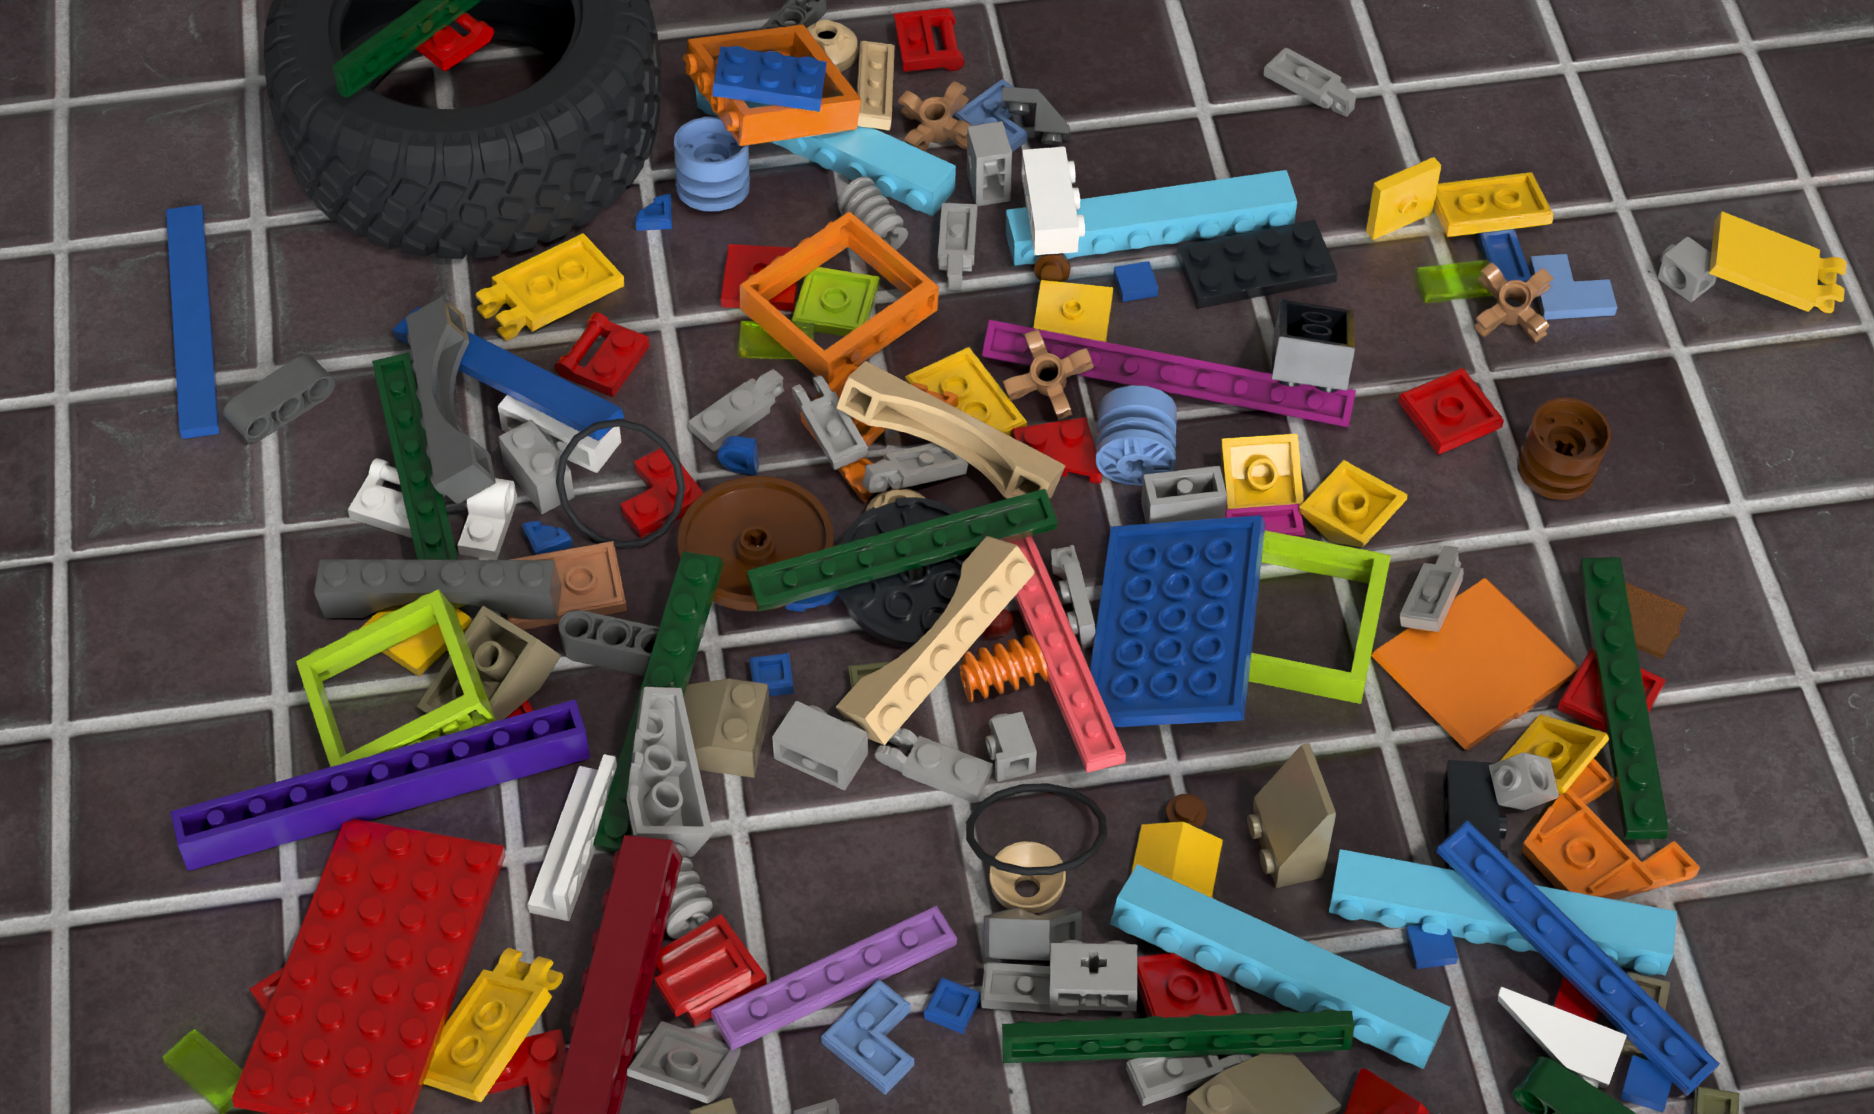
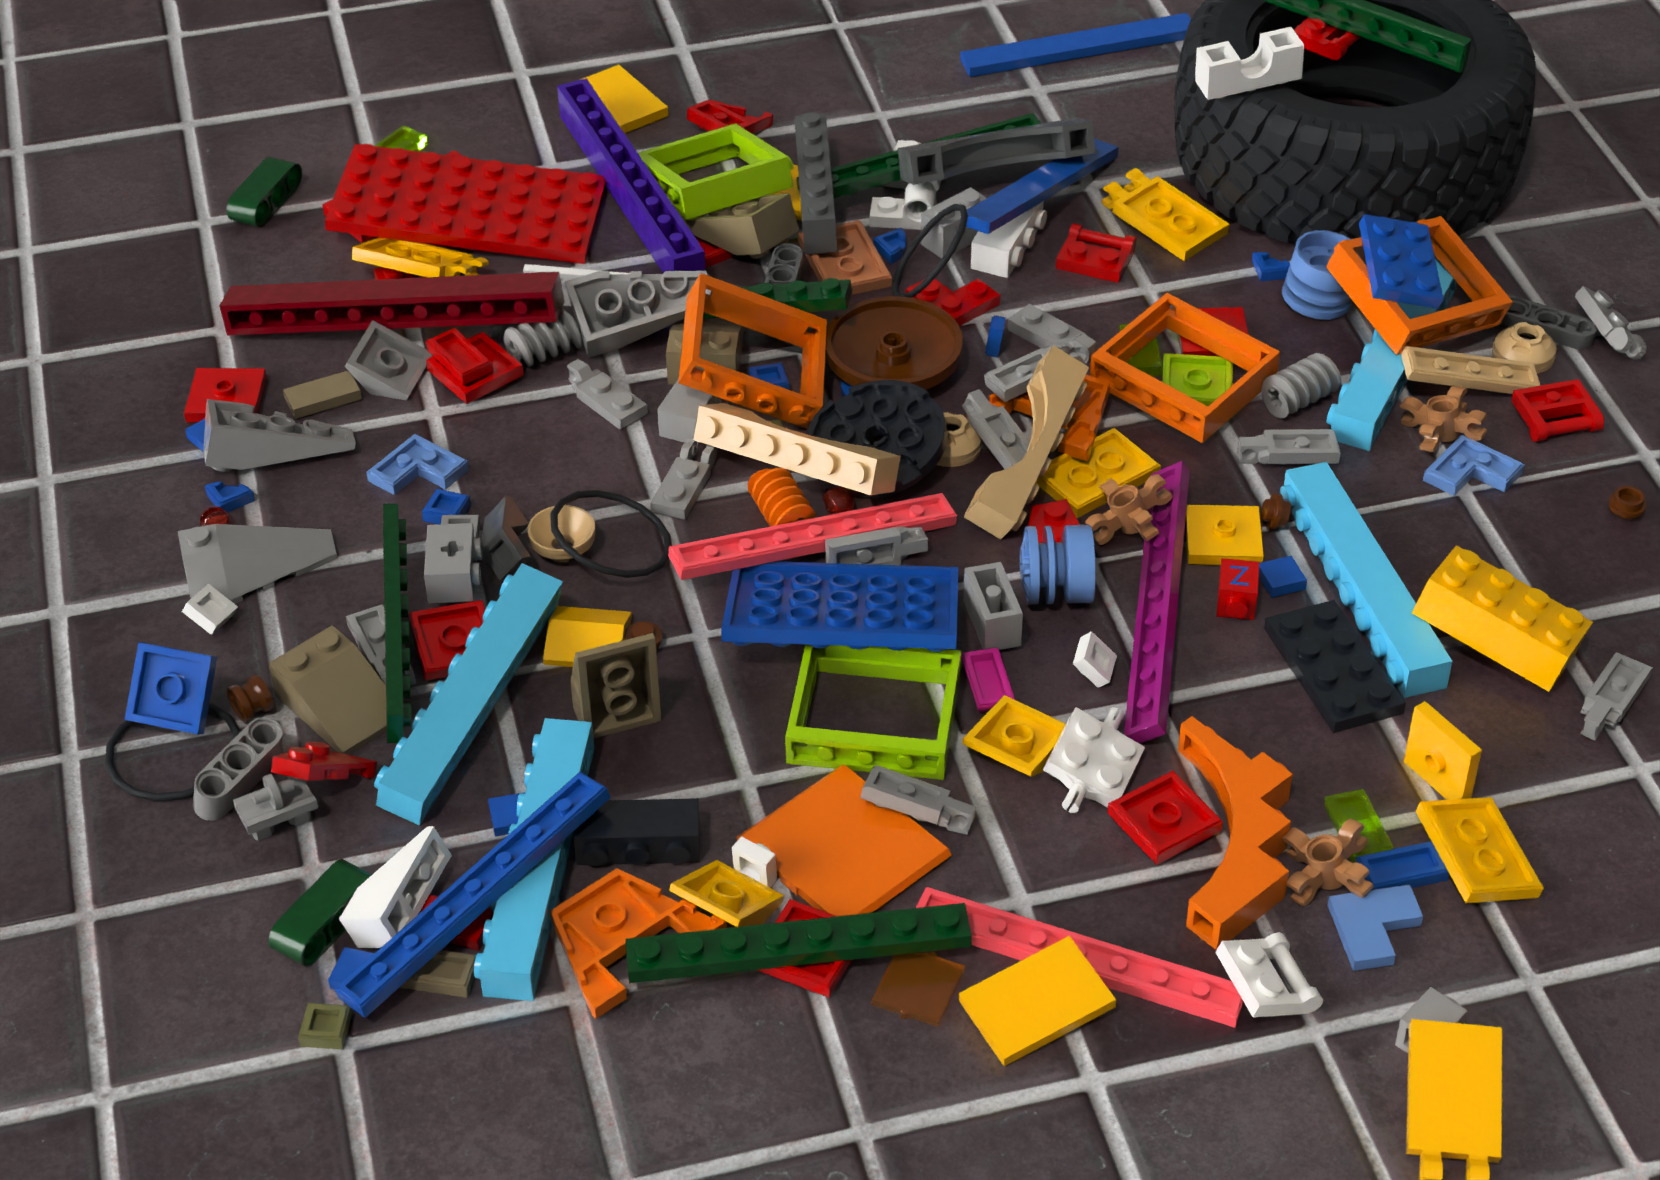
camera: 85 degrees right, 10 degrees down
(142, 806) = (627, 98): none -> yellow tile
(257, 681) = (716, 114): none -> red wing
(279, 398) = (1002, 91): dark grey beam -> none
(515, 99) = (1274, 62): none -> white arch
(773, 699) = (767, 318): none -> orange window
(775, 836) = (605, 395): none -> light grey hinge
(833, 978) = (470, 437): medium lavender tile -> none
(899, 550) = (884, 415): dark green plate -> none
(989, 163) = (1384, 446): light grey brick -> none
(1011, 746) = (702, 516): light grey brick -> none
(1048, 122) = (1474, 486): dark grey slope -> none
(1051, 200) = (1334, 477): white brick -> none
(1063, 20) = (1627, 502): none -> reddish brown plate
(1162, 312) = (1237, 589): none -> red brick
(1237, 124) = (1502, 617): none -> yellow brick
(1245, 429) = (1094, 659): none -> white plate
(1261, 471) = (1045, 669): yellow slope -> none
(1313, 346) = (1200, 678): brick -> none
(1382, 450) = (1093, 758): none -> white plate
(1428, 346) = (1249, 875): none -> orange arch
(1512, 726) = (755, 861): none -> white plate
(1524, 781) = (673, 869): light grey brick -> none
(1563, 448) = (1115, 890): reddish brown wheel -> none
(1607, 499) = (1116, 966): none -> coral tile
(1639, 373) = (1259, 982): none -> white plate
(1670, 528) = (1037, 1000): none -> yellow tile

